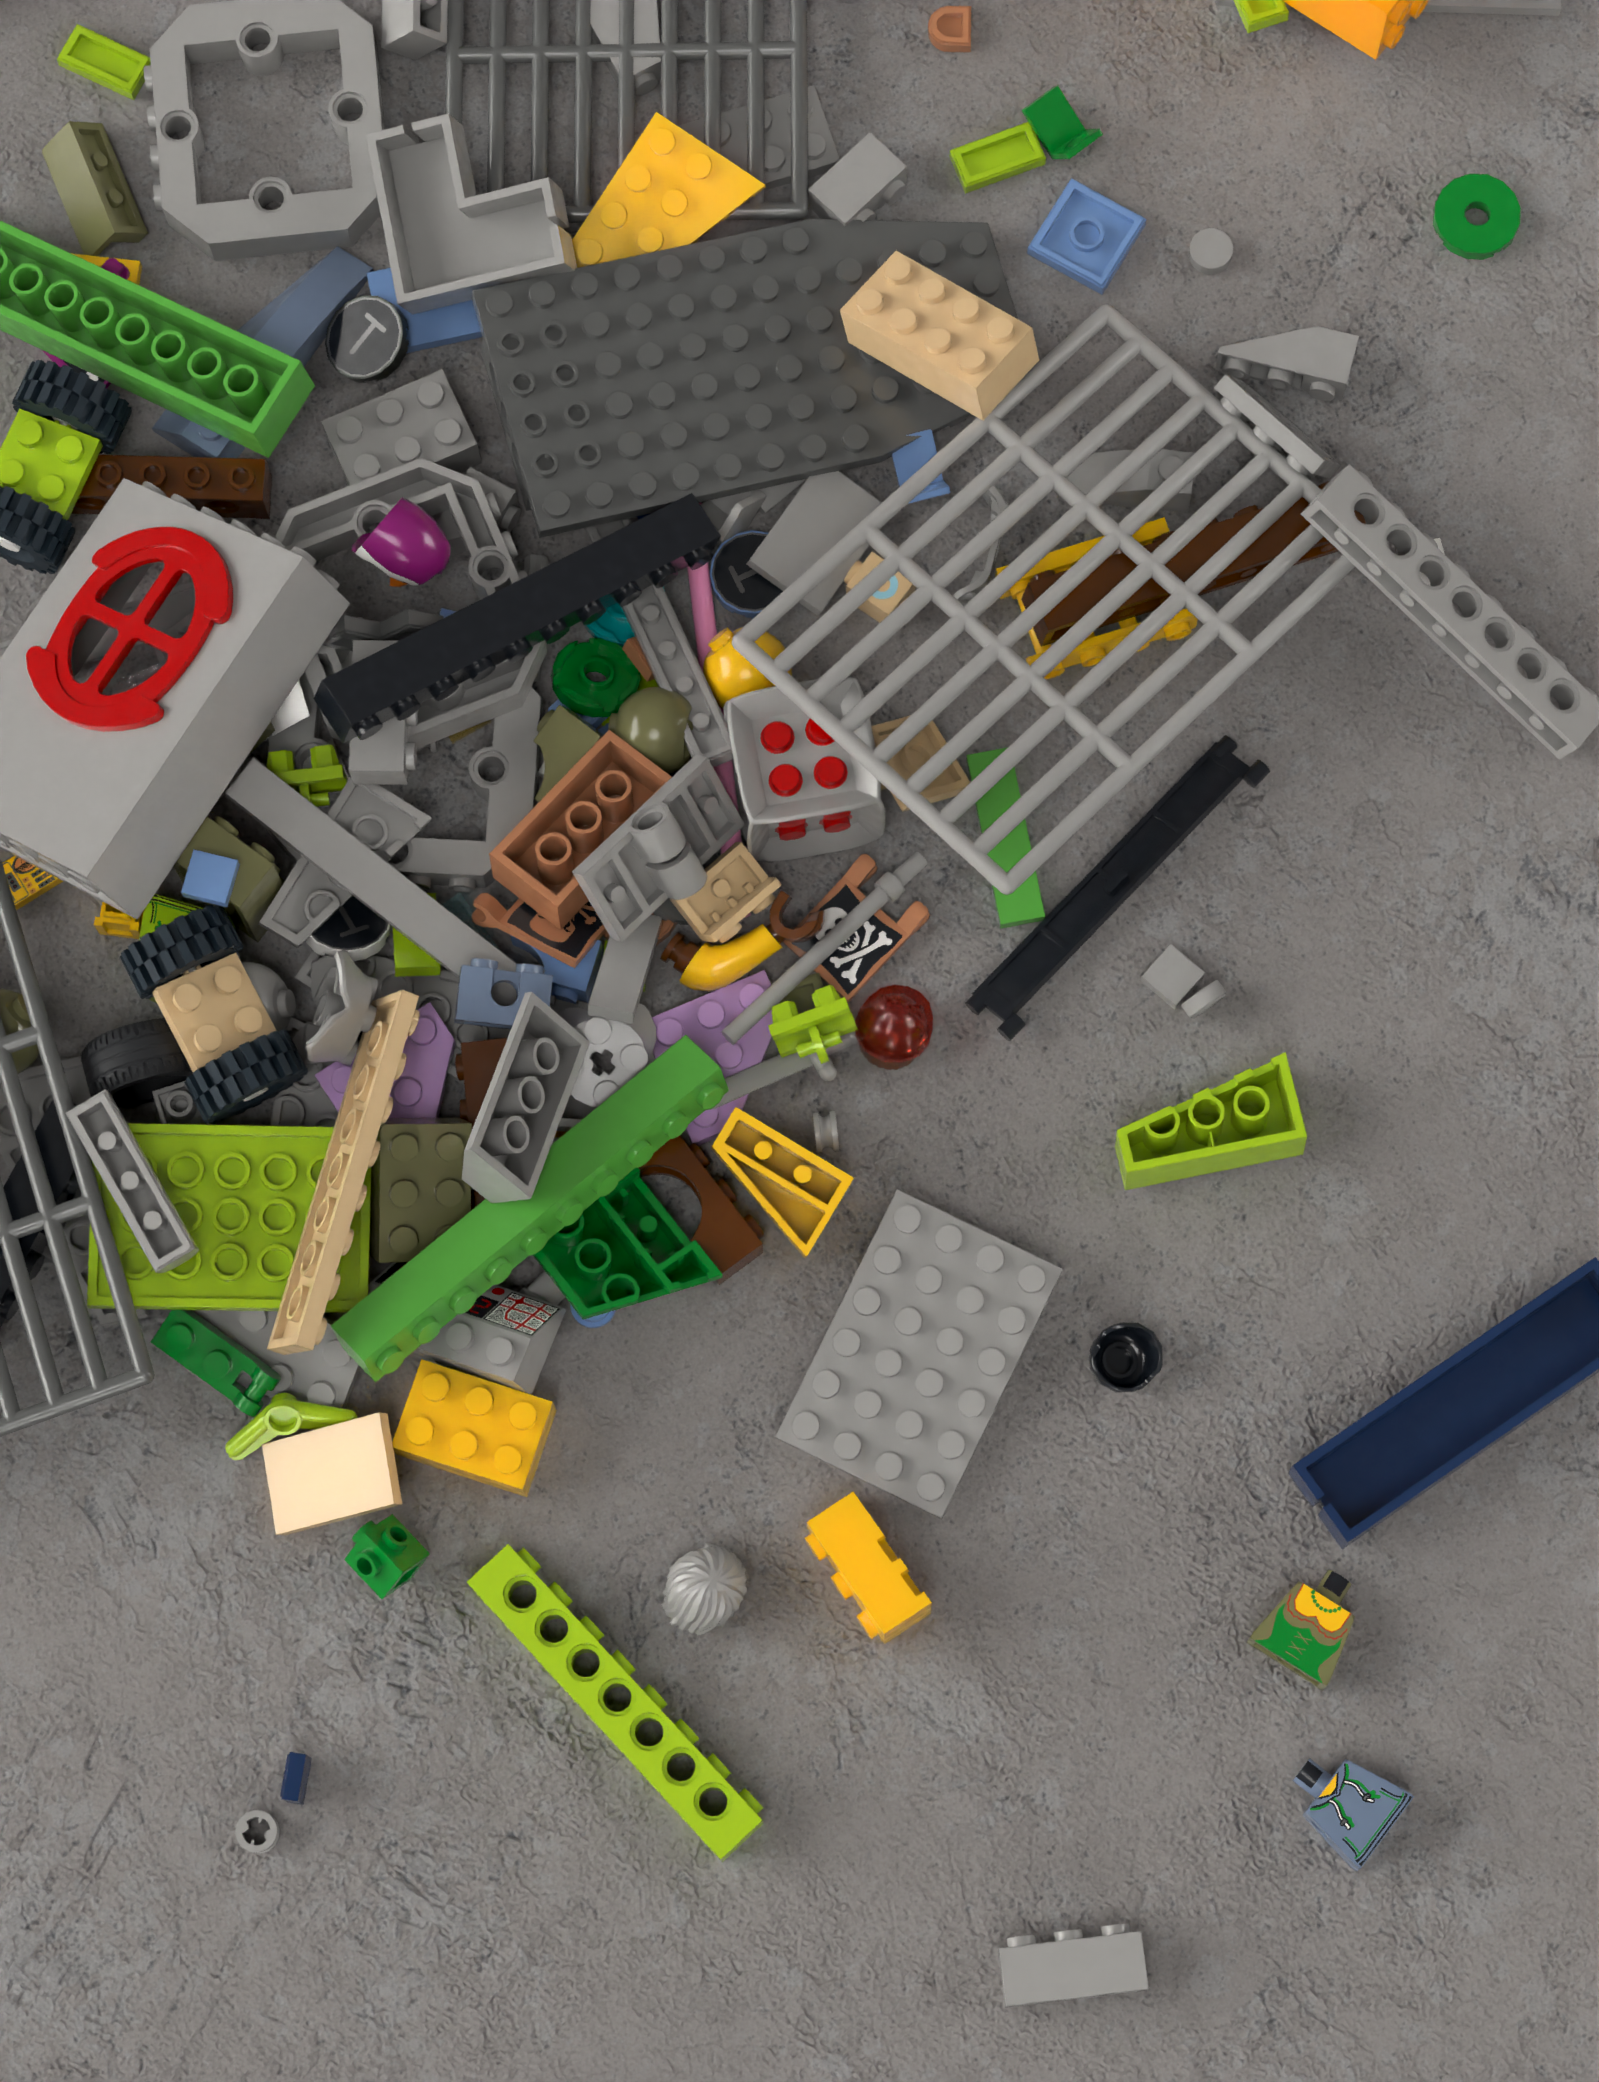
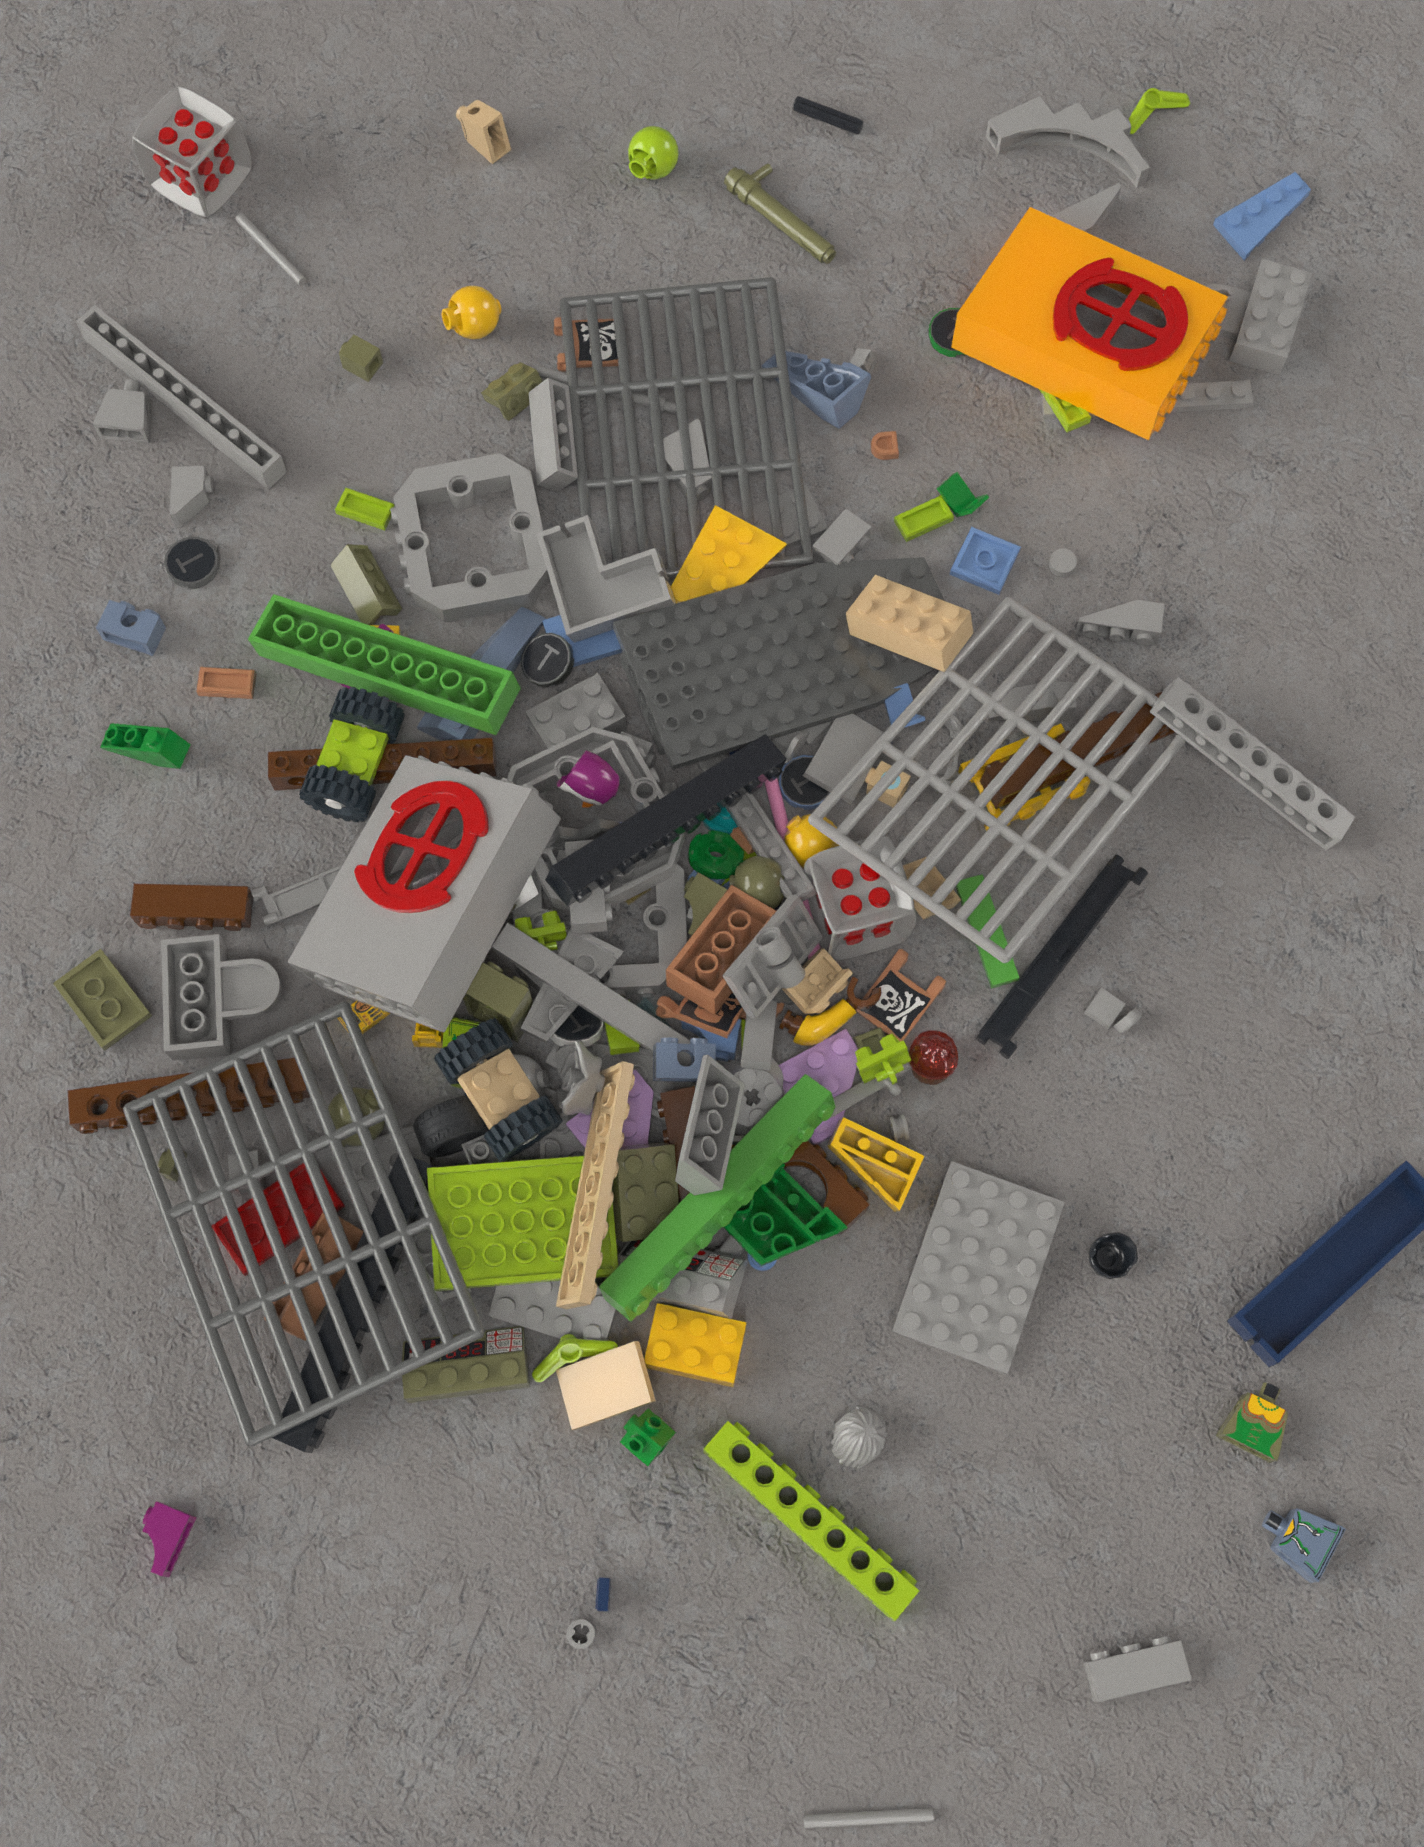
camera: 10 degrees left, 5 degrees down
(132, 1182) = (457, 1204): light grey brick -> none
(153, 1426) = (484, 1366): none -> olive slope
(210, 878) = (489, 1001): medium blue tile -> none
(216, 1359) = (521, 1316): green plate -> none
(867, 1569) = (964, 1413): yellow wedge -> none
(887, 889) = (917, 971): light grey bar -> none
(1216, 1130) = (1150, 1102): lime wedge -> none
(1275, 428) = (1121, 662): light grey plate -> none
(1482, 193) = (1228, 516): green tile -> none

